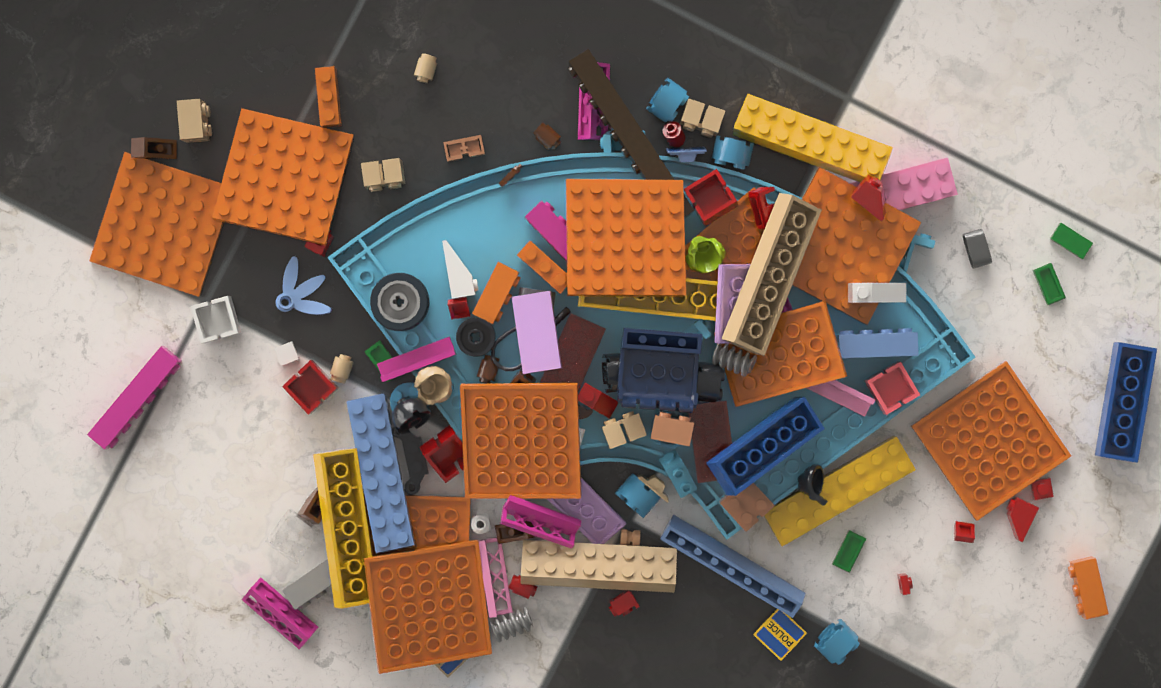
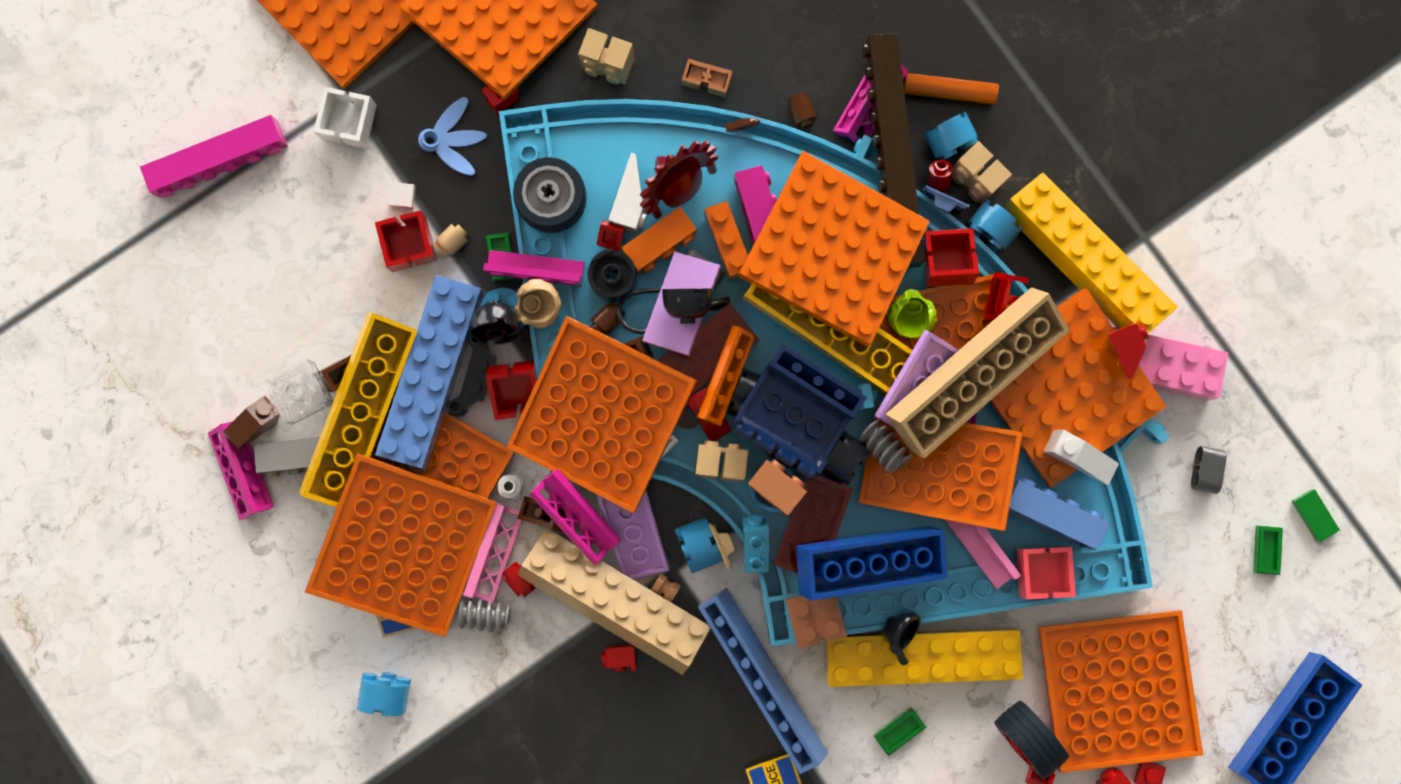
camera: 25 degrees right, 5 degrees down
(272, 575) = (252, 423): none -> reddish brown slope
(485, 243) = (678, 177): none -> dark red piece
(541, 332) = (687, 303): none -> black cylinder
(595, 368) = (726, 375): none -> orange brick
(648, 63) = (951, 88): none -> orange brick
(942, 509) = (1031, 739): none -> black wheel

